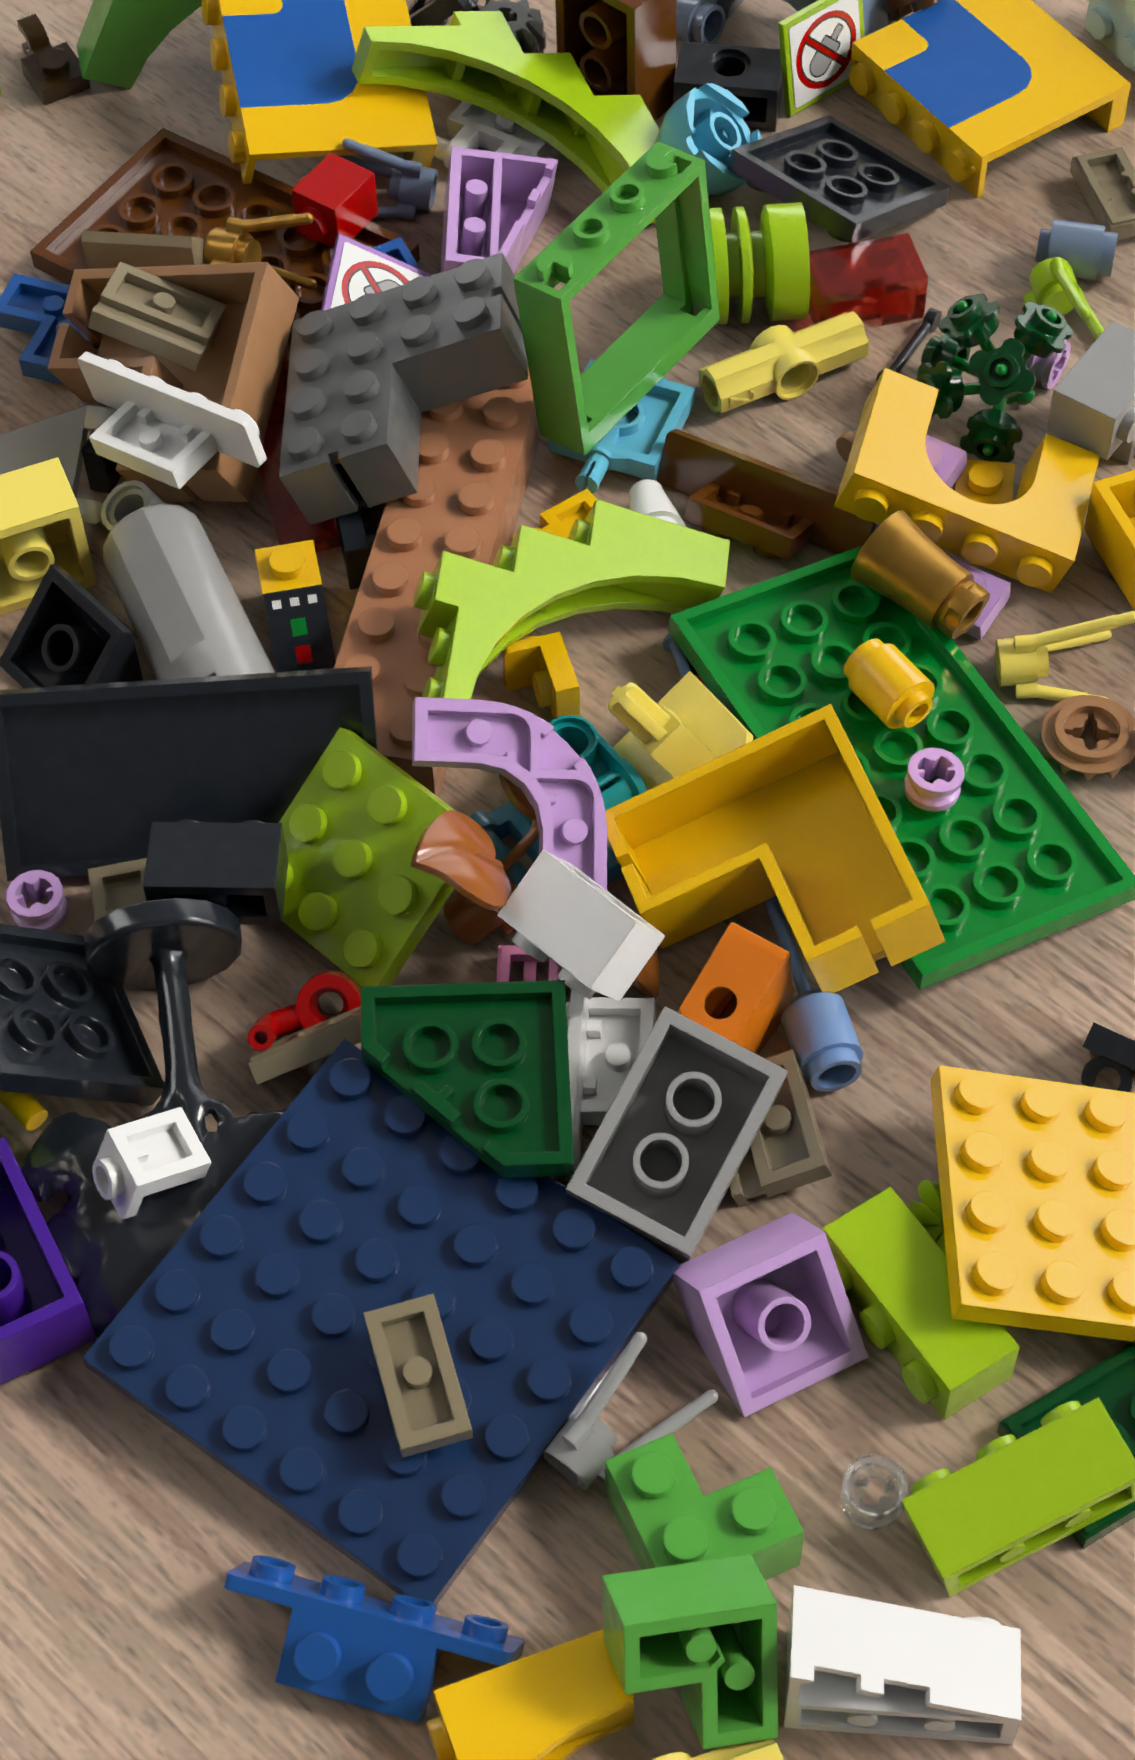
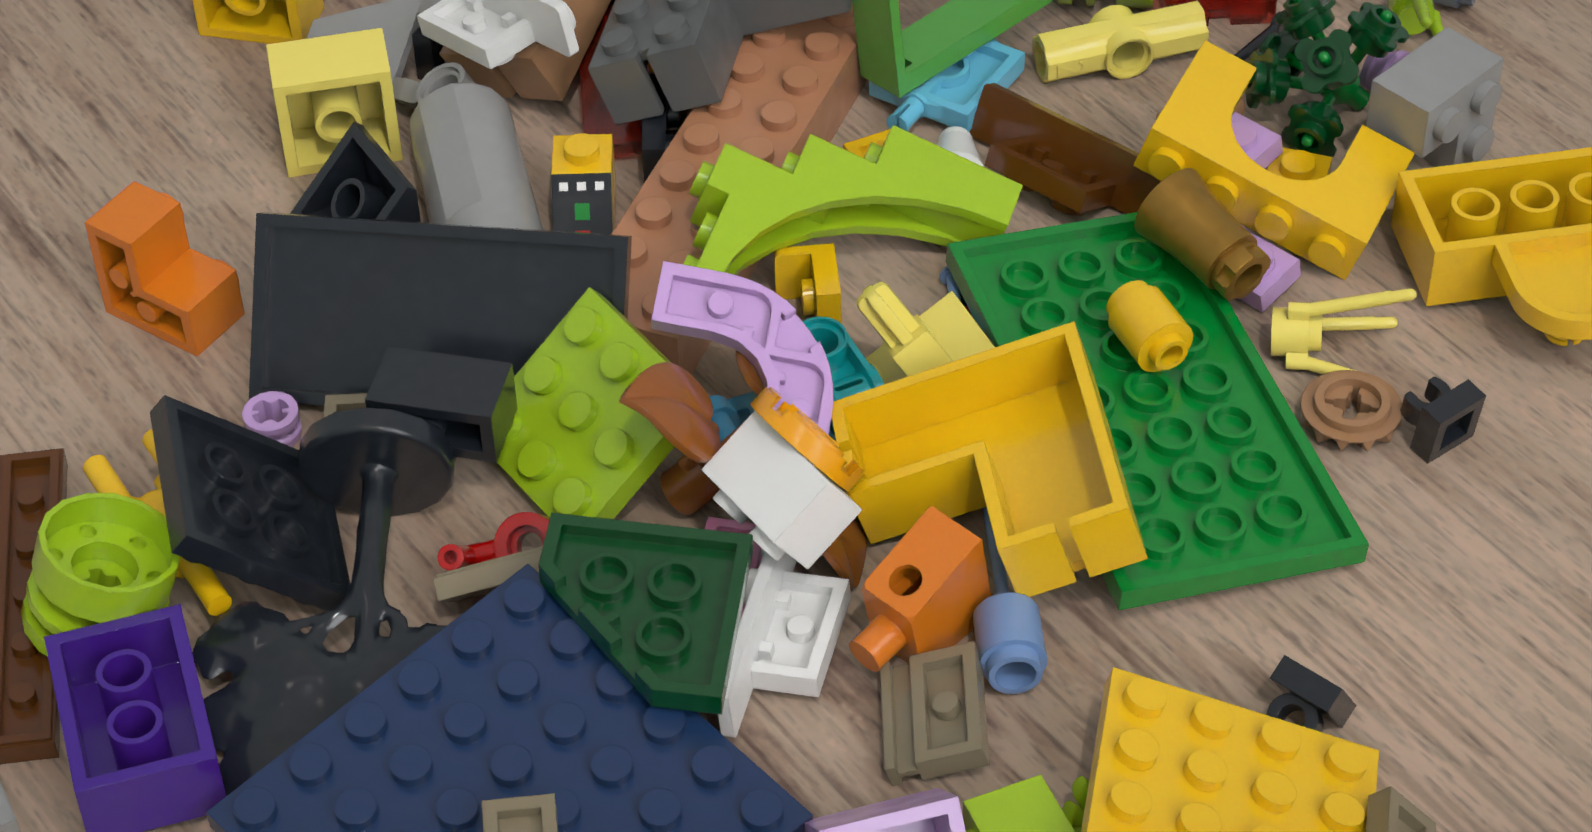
camera: 10 degrees right, 10 degrees down
(148, 1159) = (312, 642): white bracket -> none
(597, 868) = (807, 438): none -> light orange tile
(676, 1133) = (836, 692): light grey brick -> none
(926, 765) = (1175, 418): lavender bush -> none

